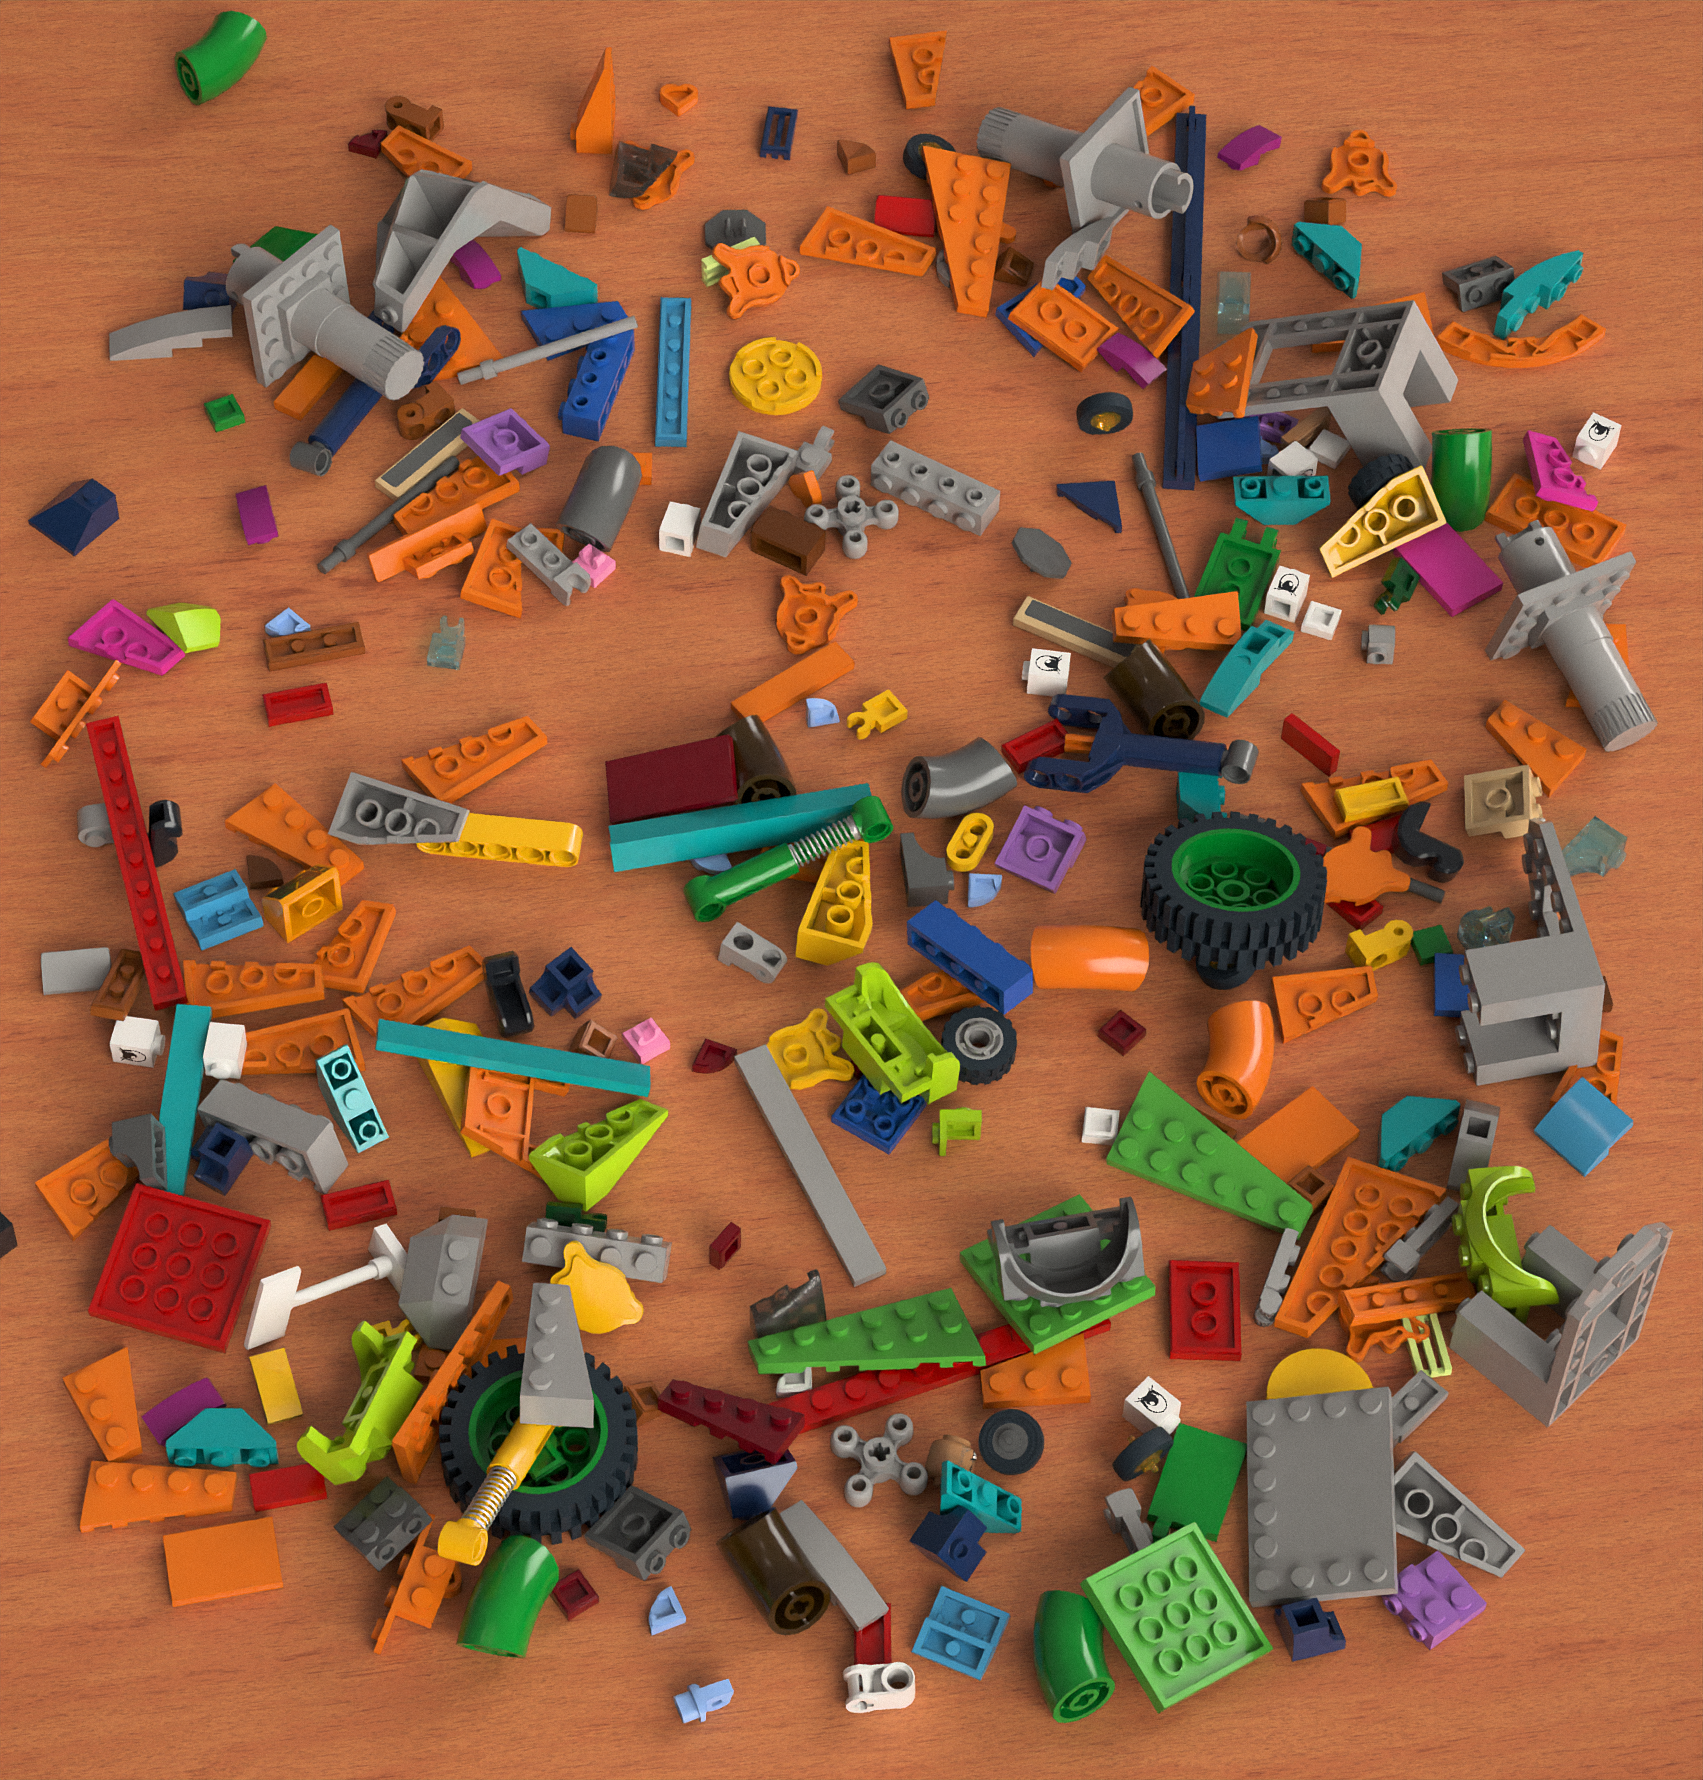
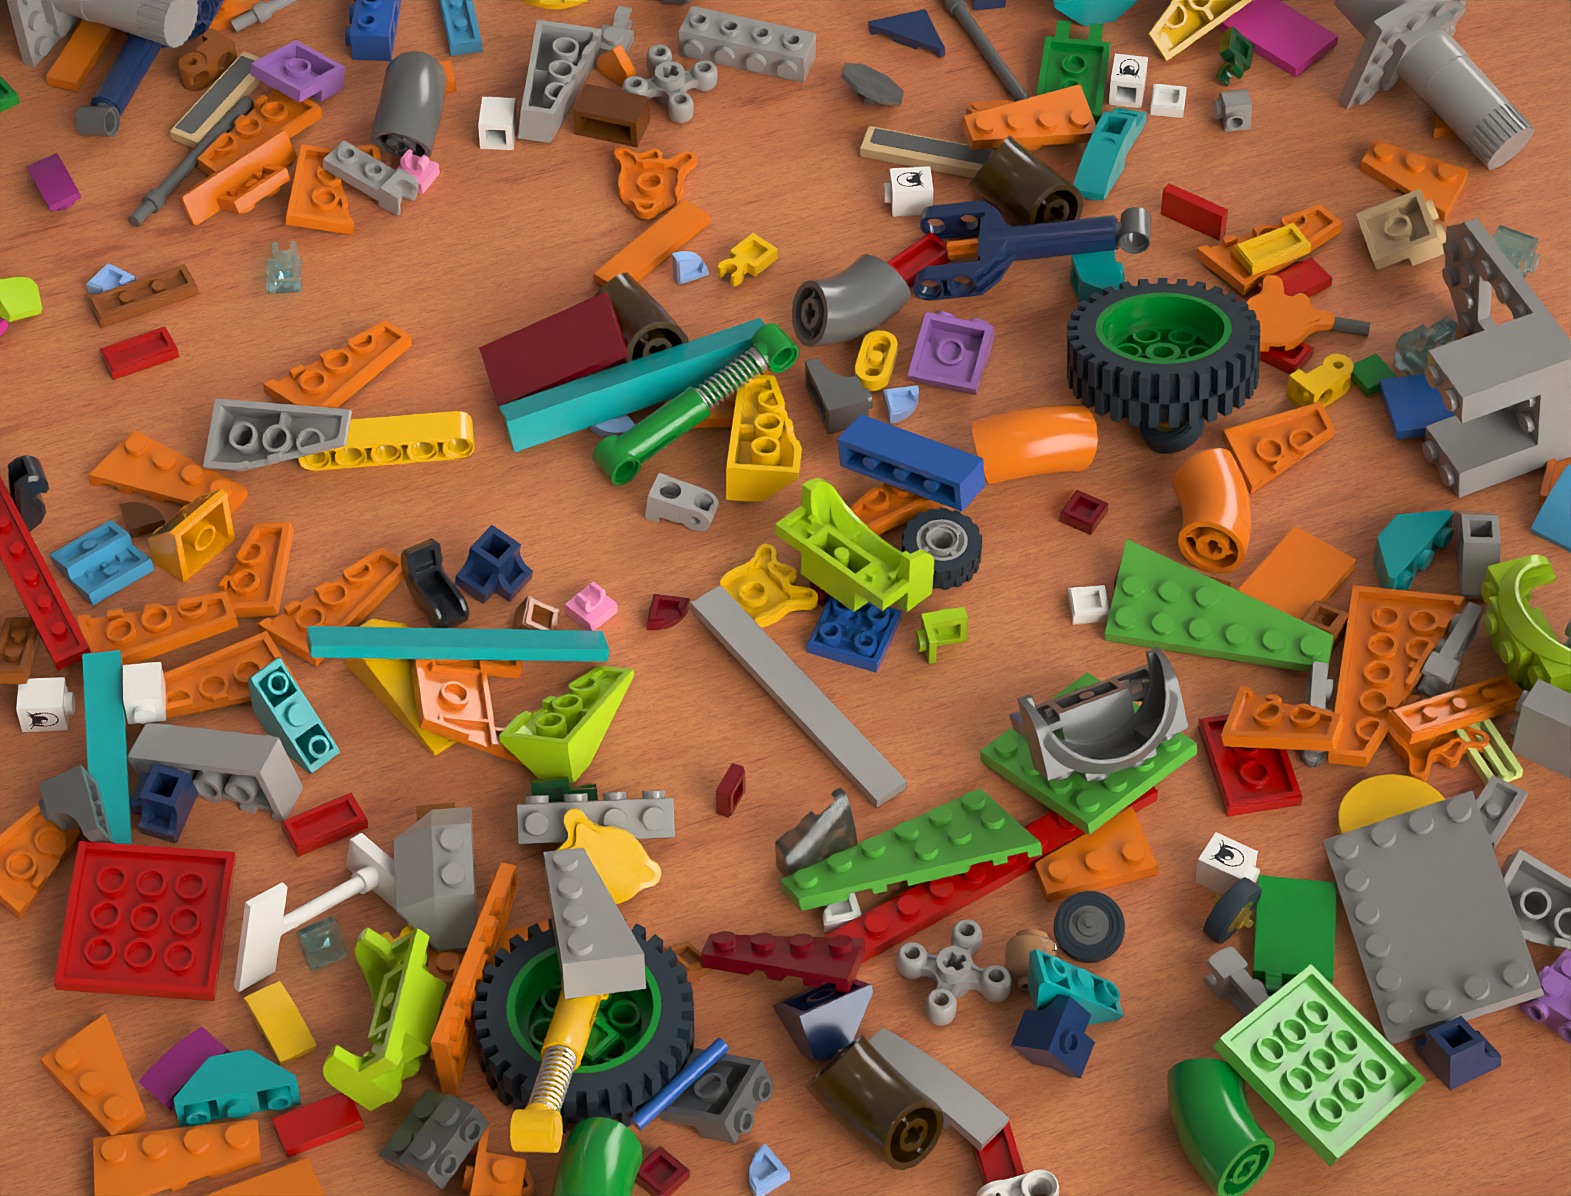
camera: 10 degrees left, 5 degrees down
(329, 1319) = (322, 943): none -> clear light blue tile
(608, 1516) = (679, 1084): none -> blue bar
(961, 1633) = (1090, 1130): dark azure slope -> none
(1234, 1283) = (1277, 725): none -> orange wing
(1421, 849) = (1338, 286): black animal -> none

